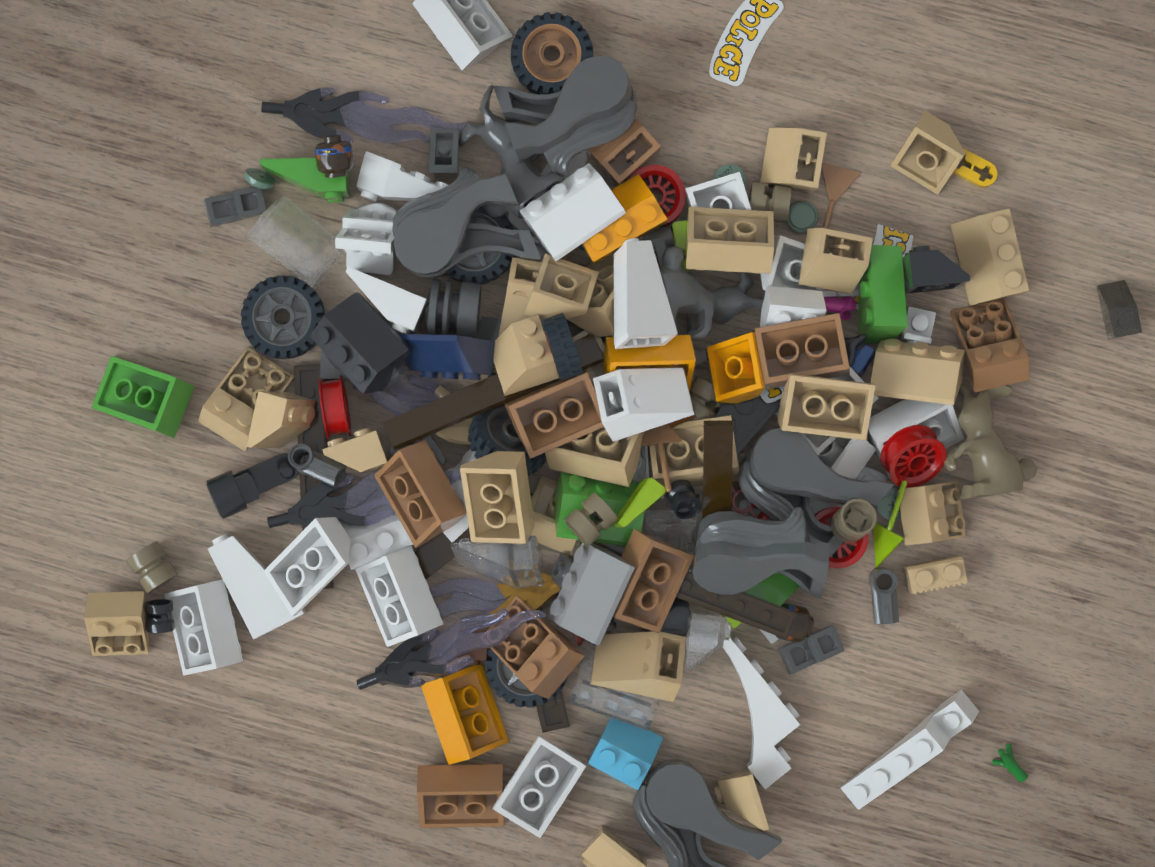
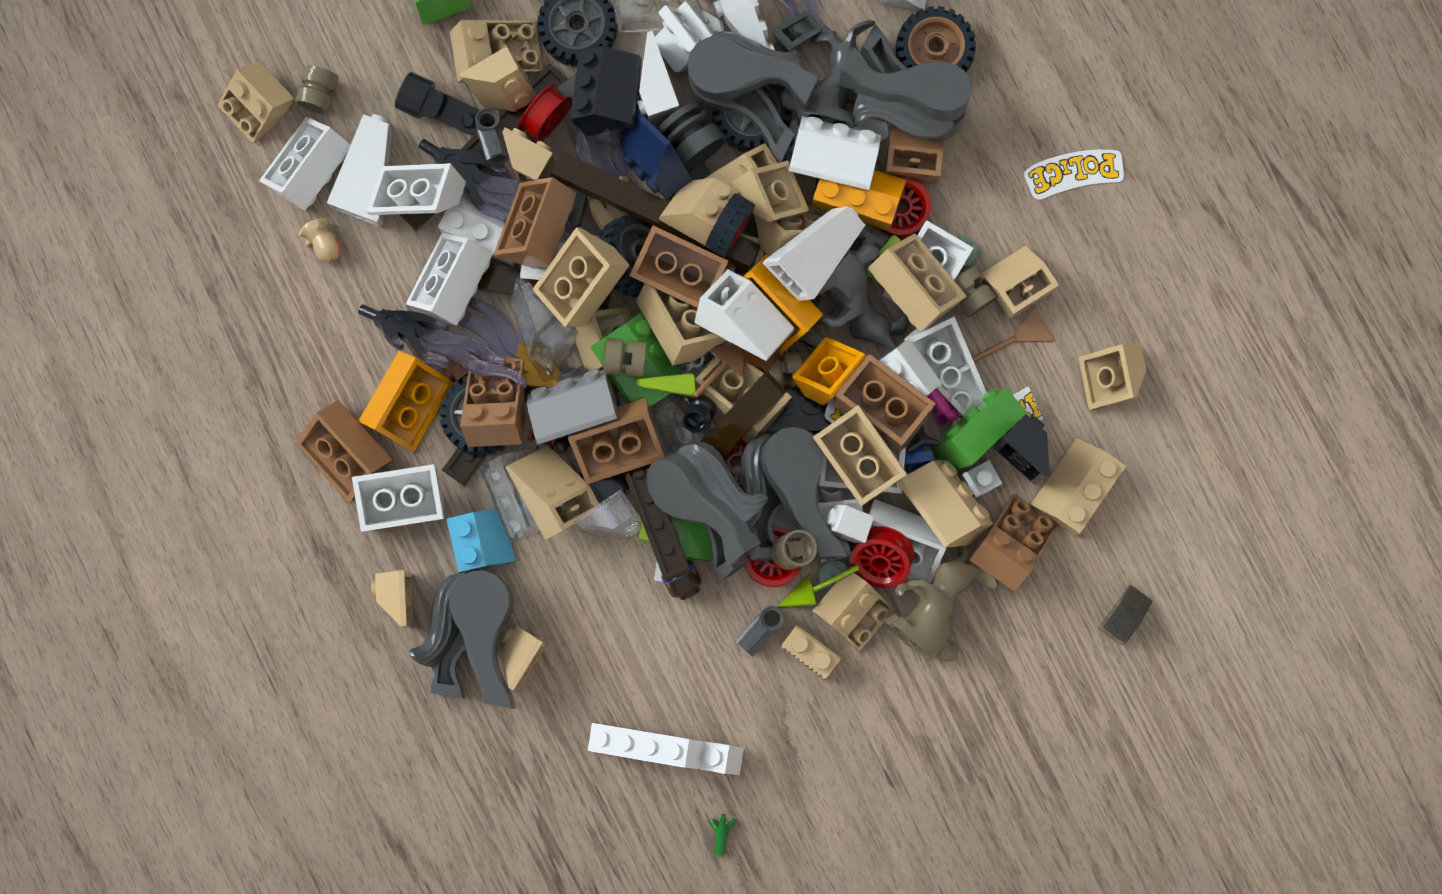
camera: 55 degrees right, 5 degrees down
(159, 616) = (286, 125): black wheel -> none
(282, 668) = (324, 242): none -> tan animal
(769, 717) = (598, 622): white arch -> none
(802, 216) = (983, 326): sand green piece -> none
(811, 650) = (675, 611): dark grey slope -> none
(834, 259) = (972, 371): tan slope -> none
(868, 459) = (849, 523): none -> white brick
(979, 164) = (1138, 418): yellow beam -> none

